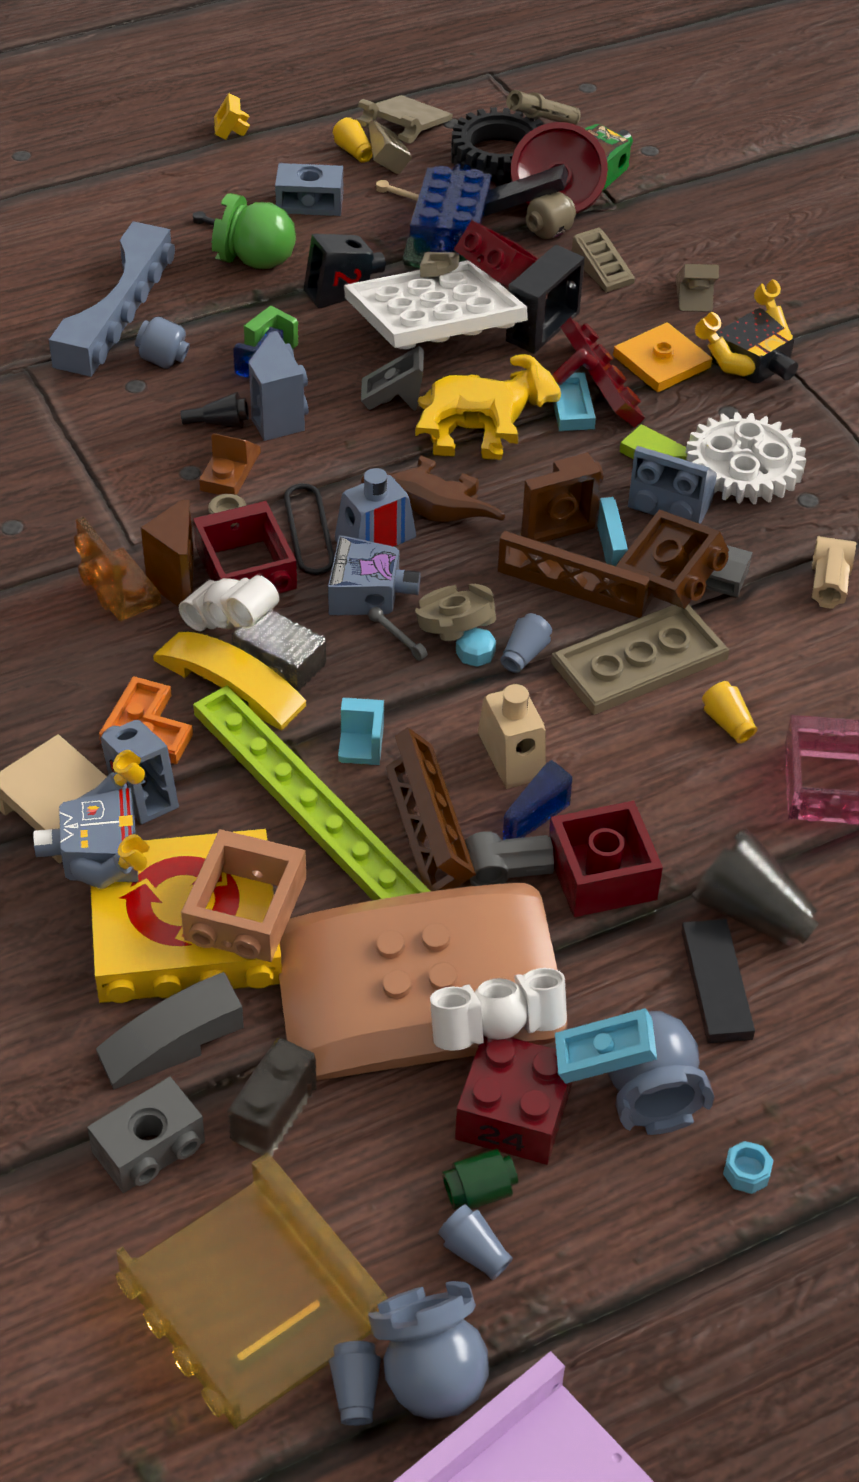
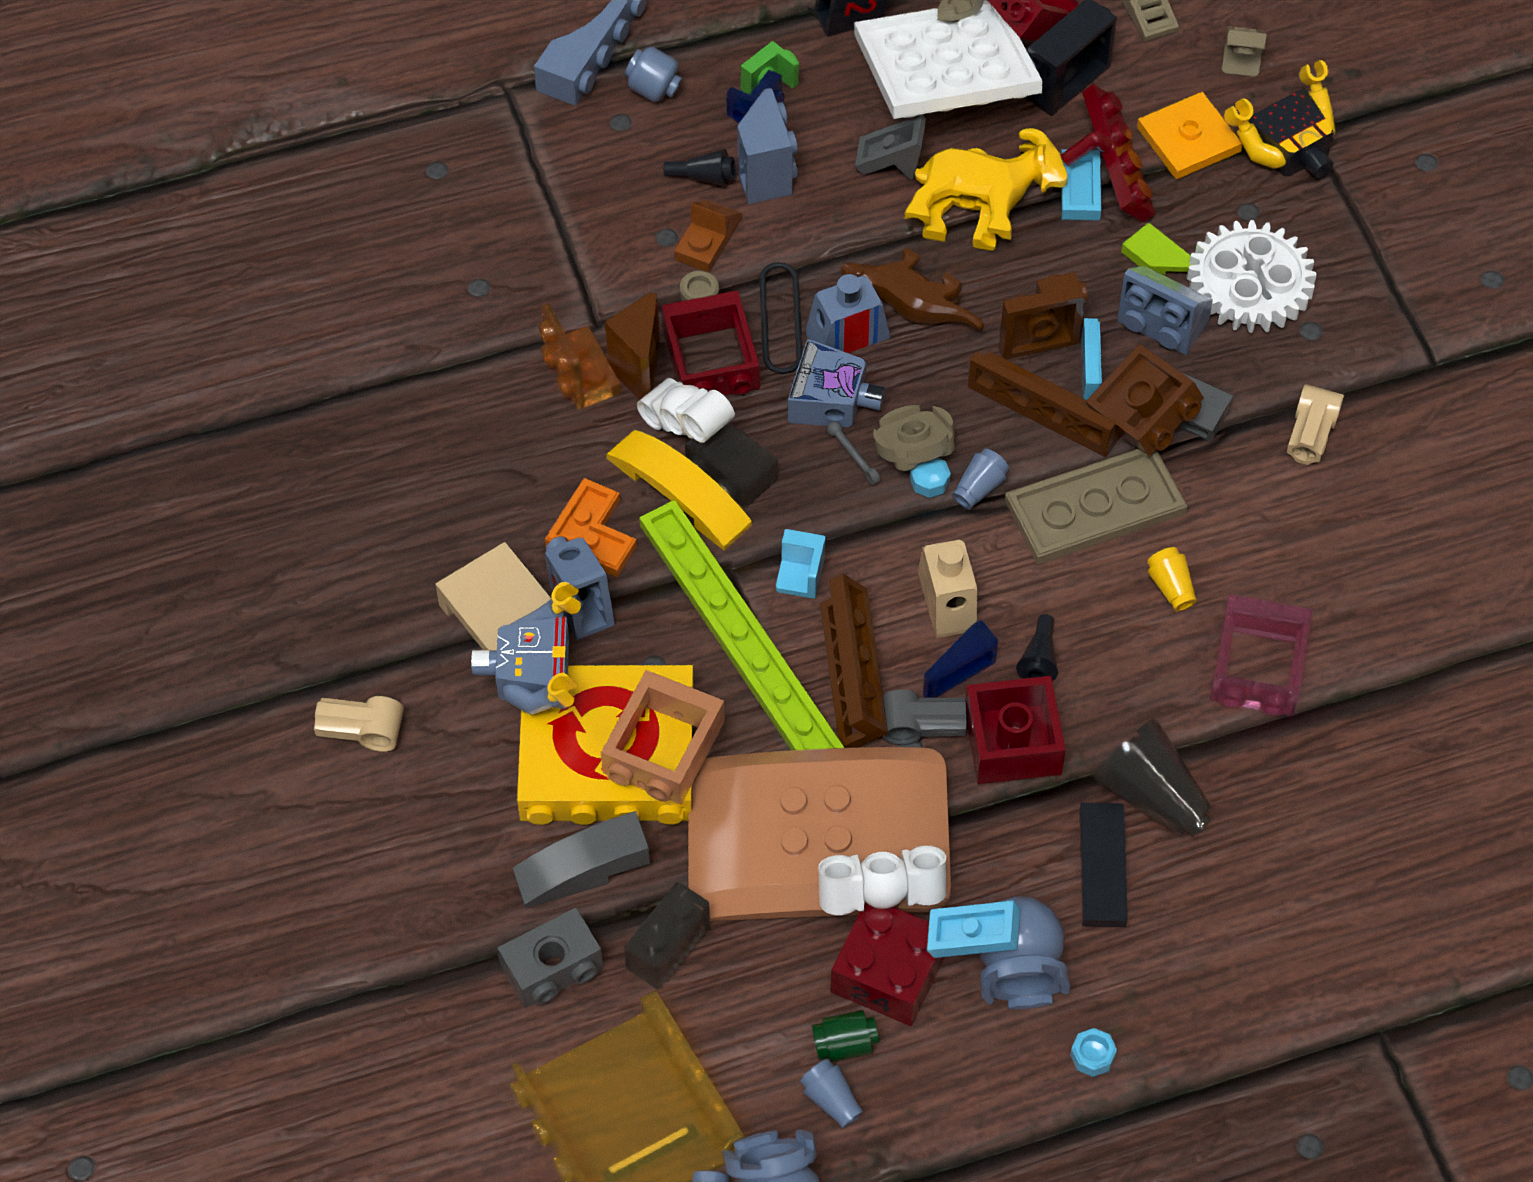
camera: 10 degrees right, 10 degrees up
(613, 786) = (1039, 655): none -> black cone

